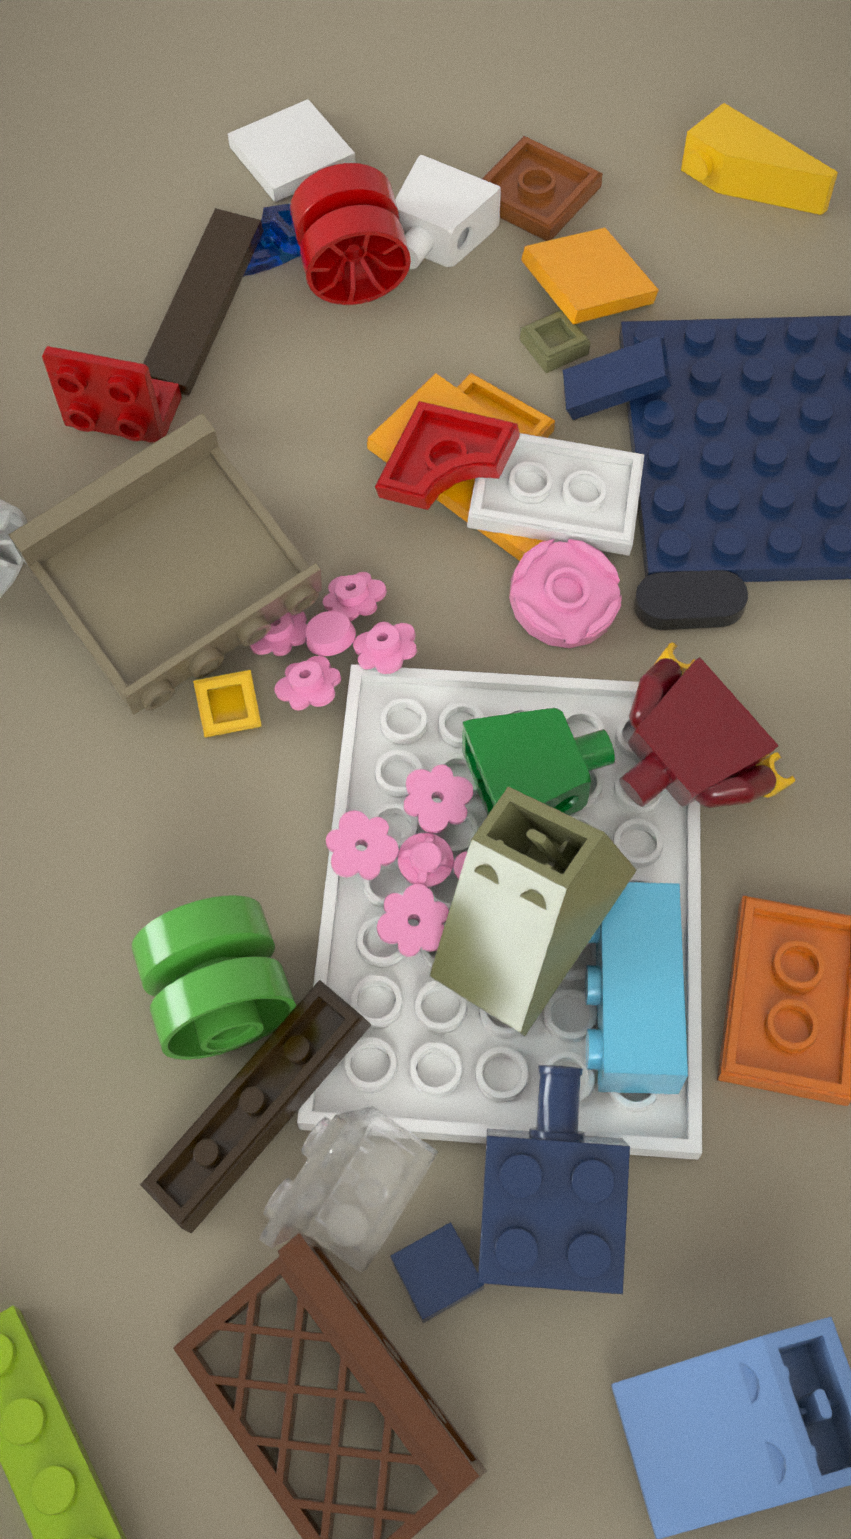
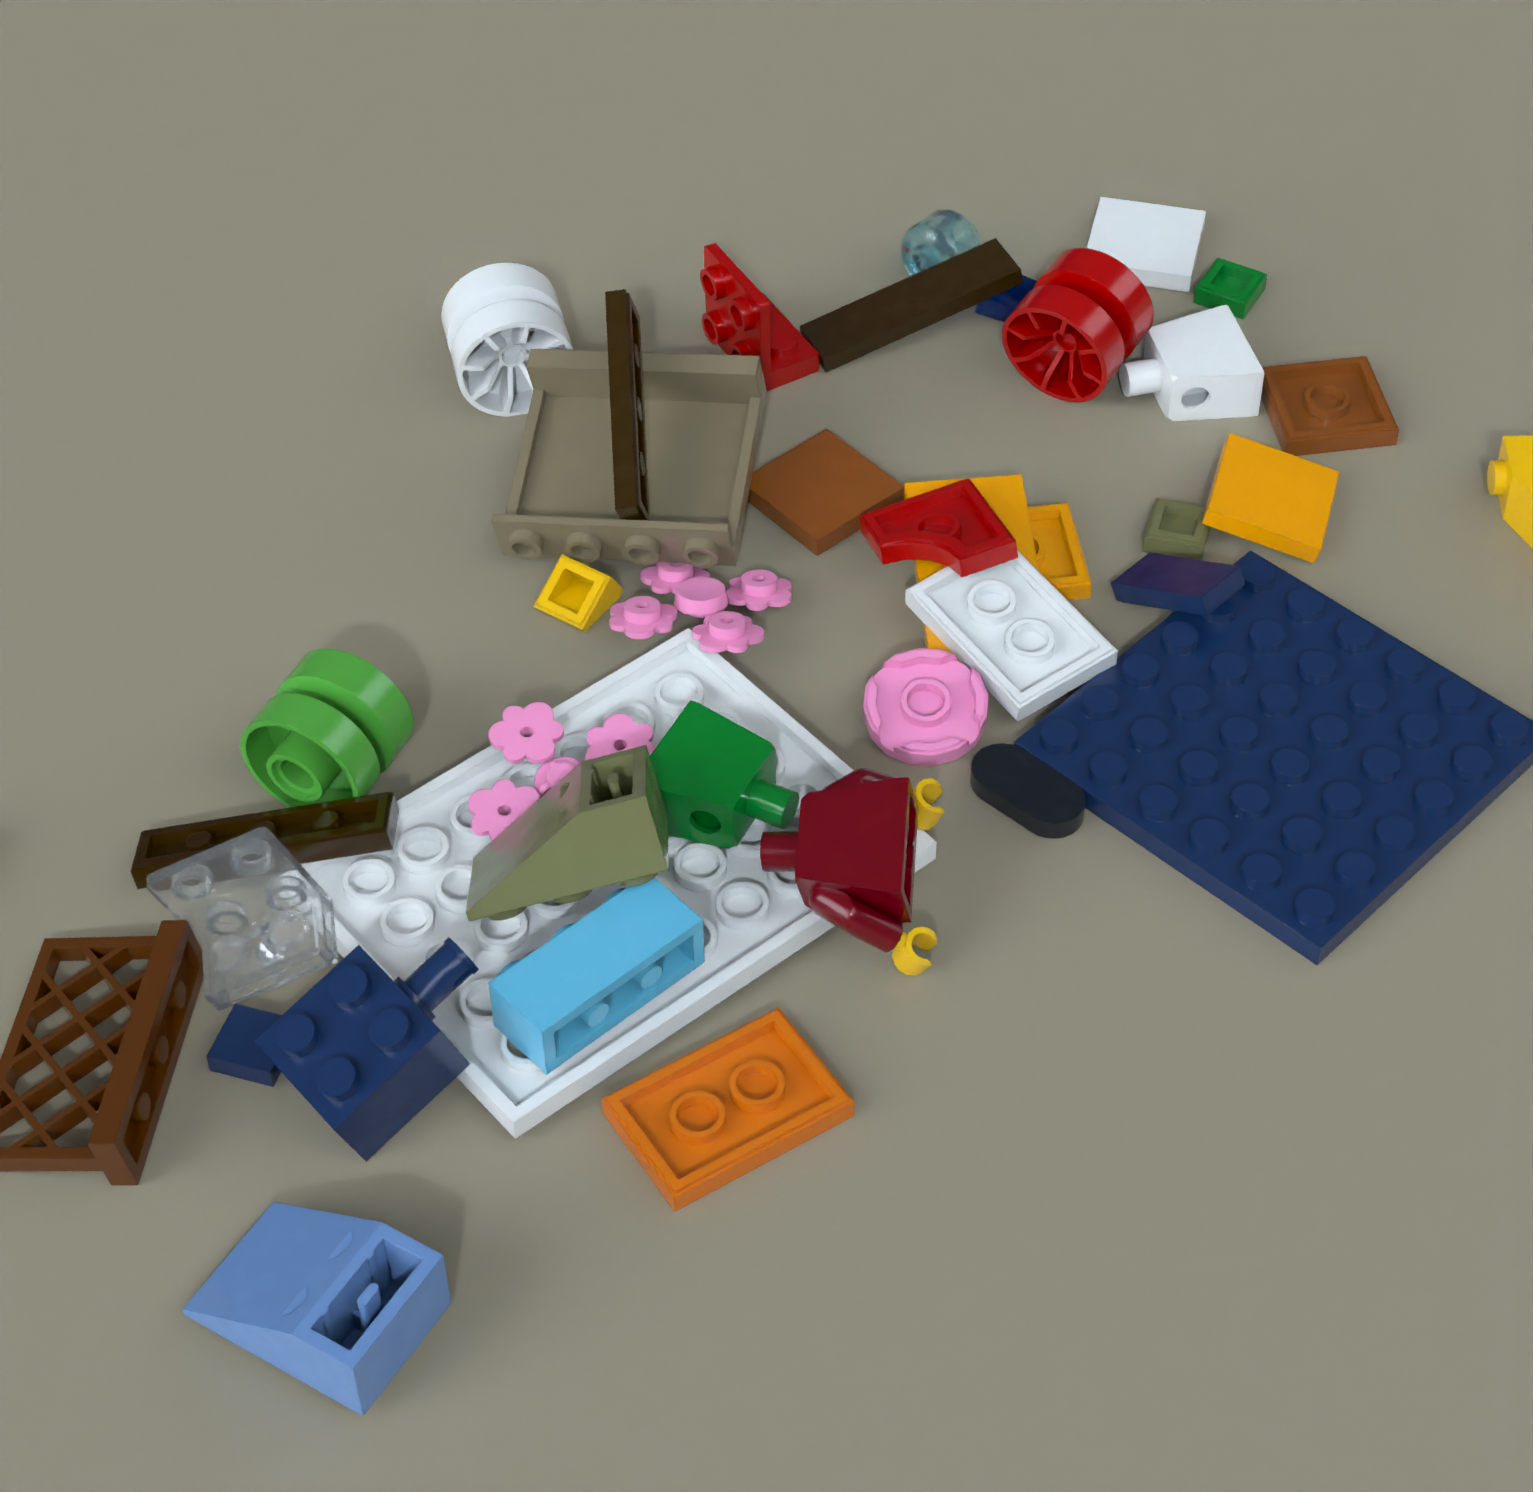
camera: 45 degrees right, 15 degrees down
(150, 526) = (627, 407): none -> dark brown tile
(169, 242) = (937, 240): none -> clear light blue head
(305, 484) = (821, 491): none -> dark orange tile
(382, 145) = (1231, 286): none -> green tile

